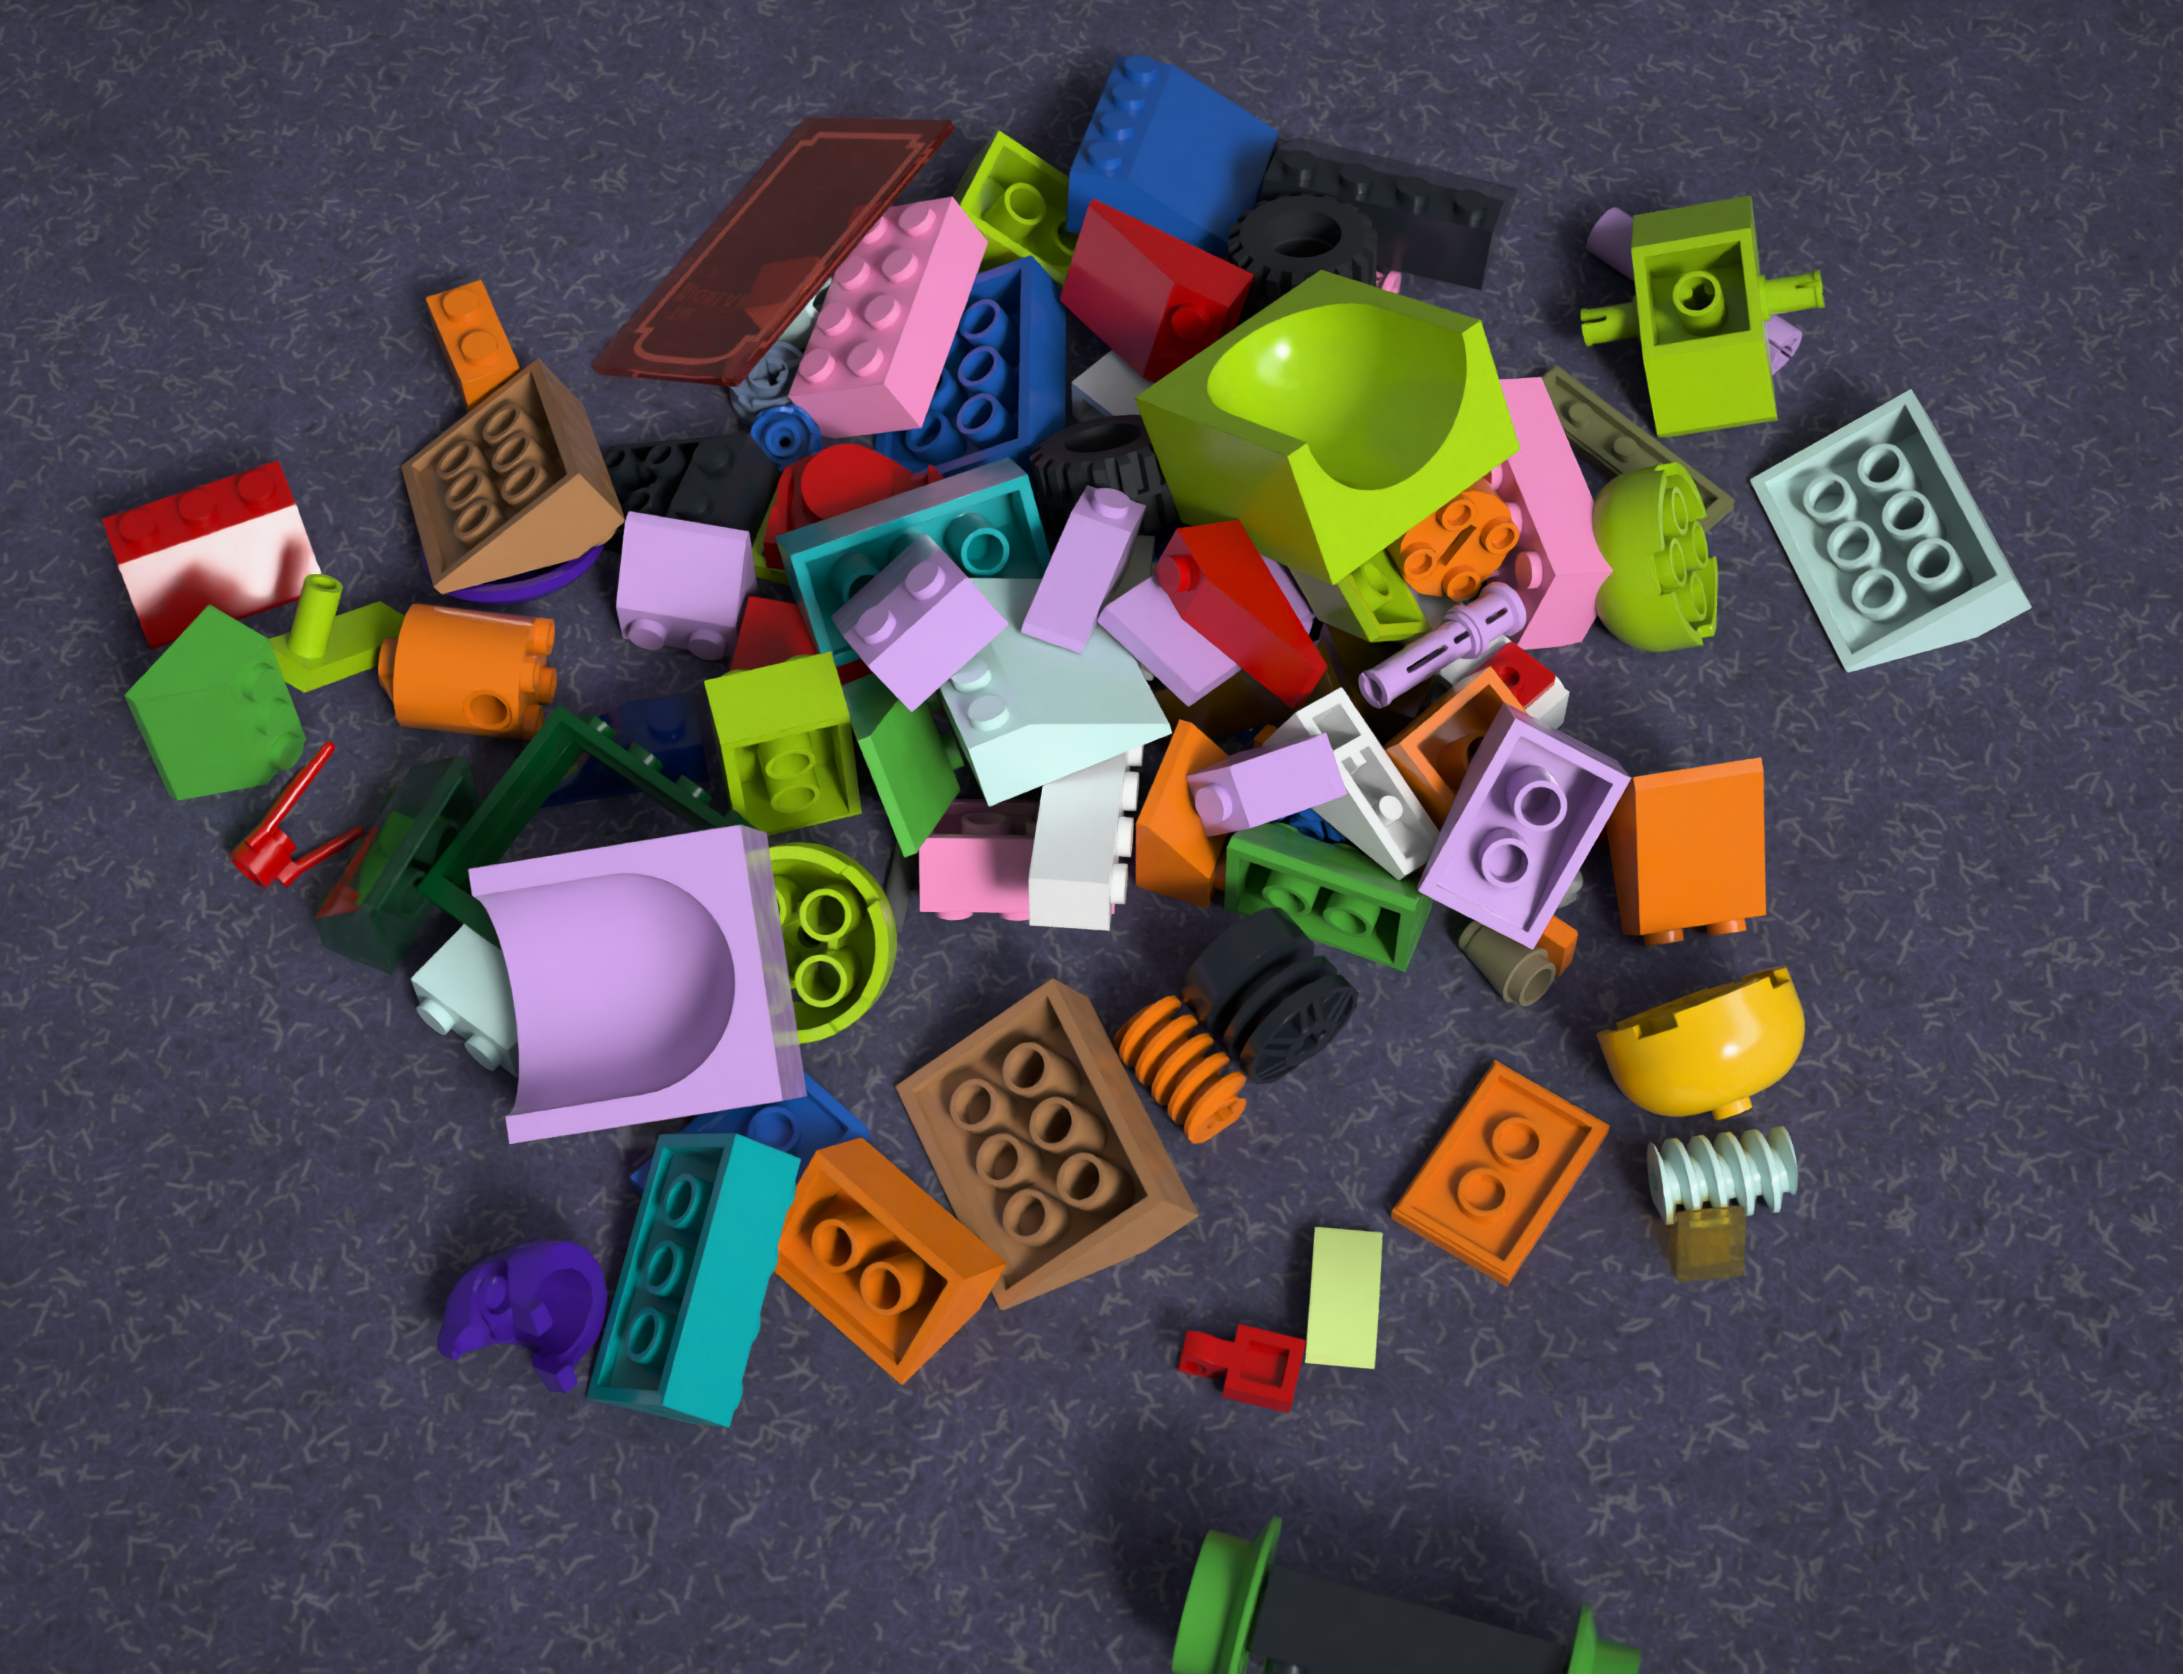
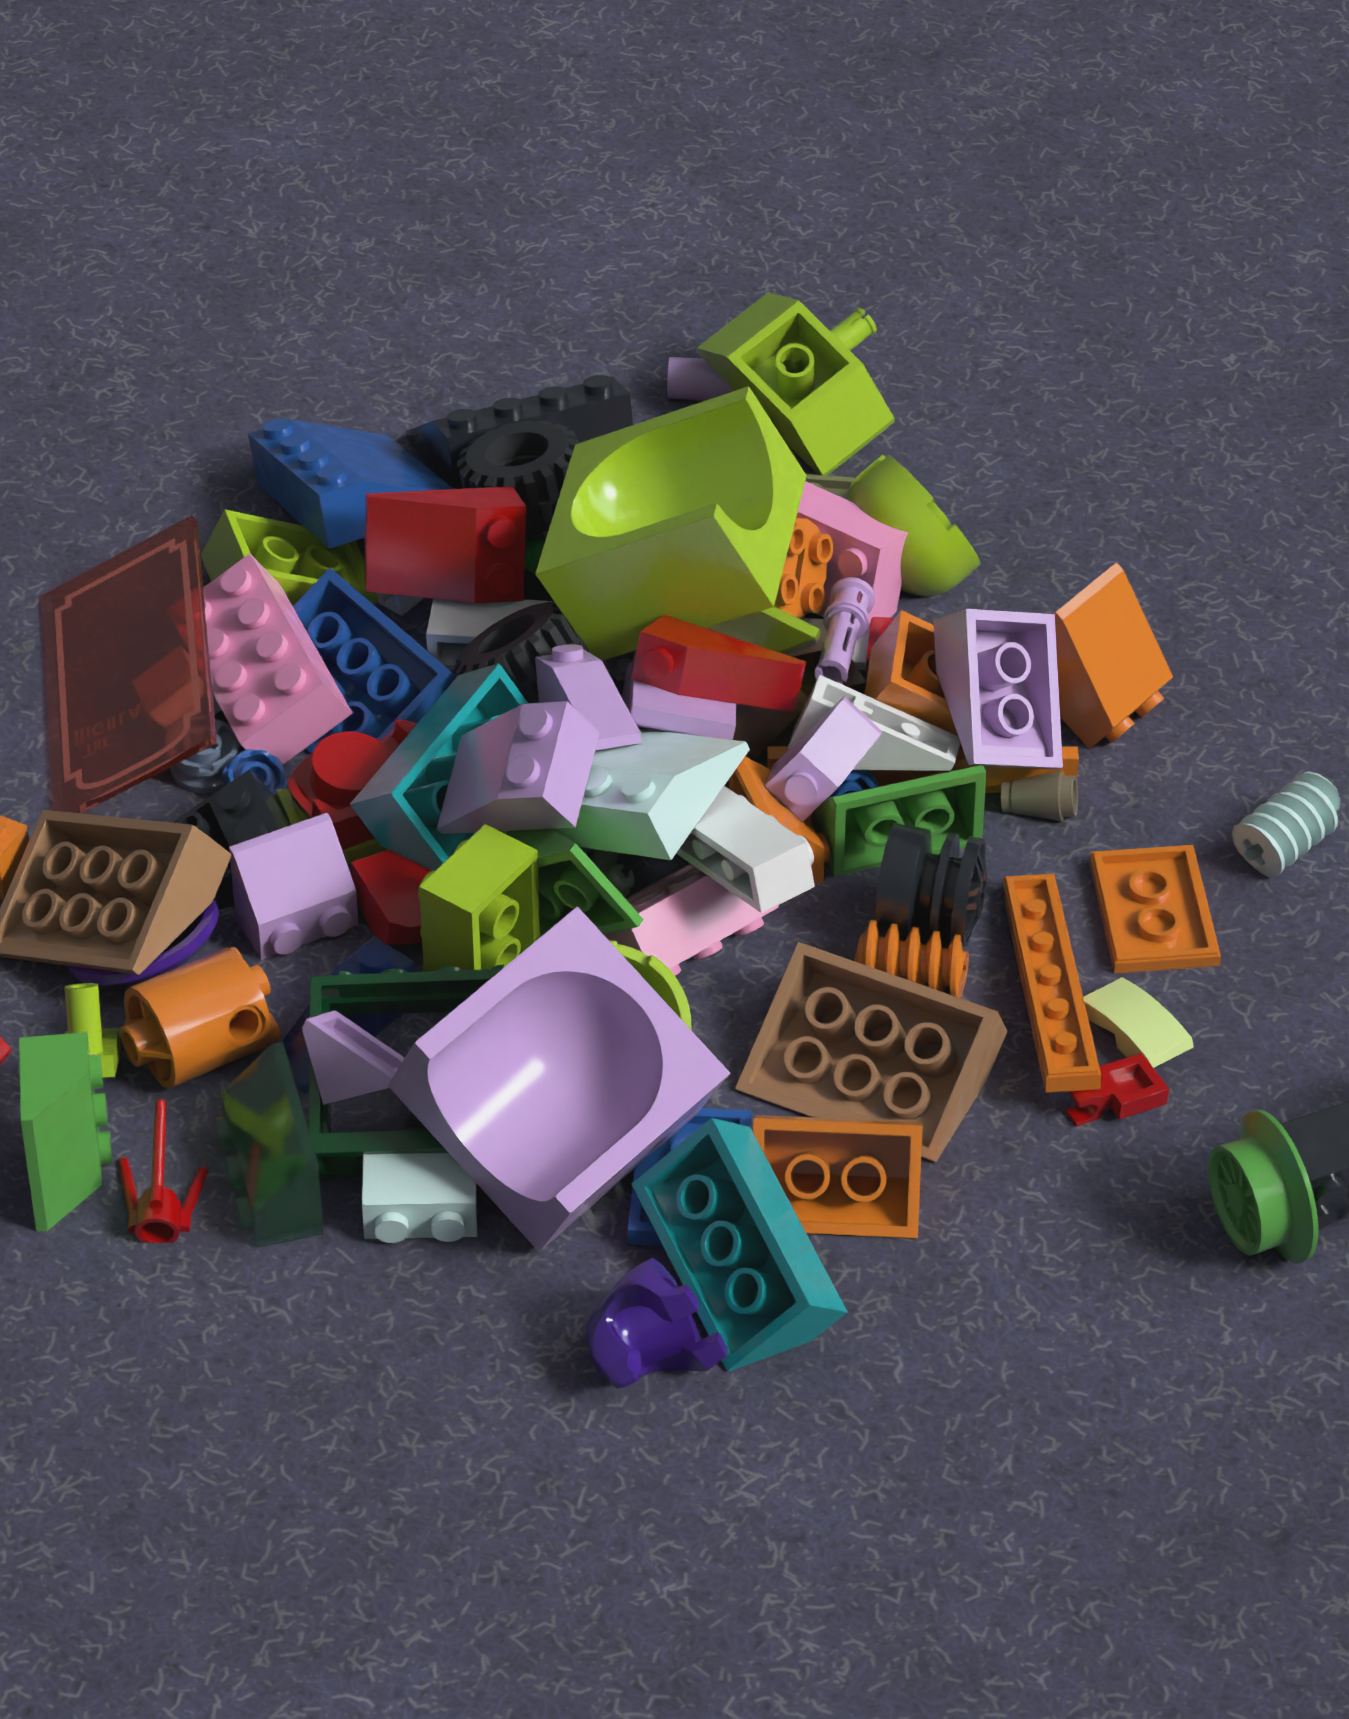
camera: 40 degrees left, 15 degrees down
(518, 810) = (347, 1057): none -> lavender slope
(1294, 1192) = (1050, 984): none -> orange tile
(1708, 1046) = (1215, 758): yellow cylinder -> none
(1708, 1243) = (1313, 866): clear yellow slope -> none
(1889, 538) = (1029, 445): light aqua slope -> none

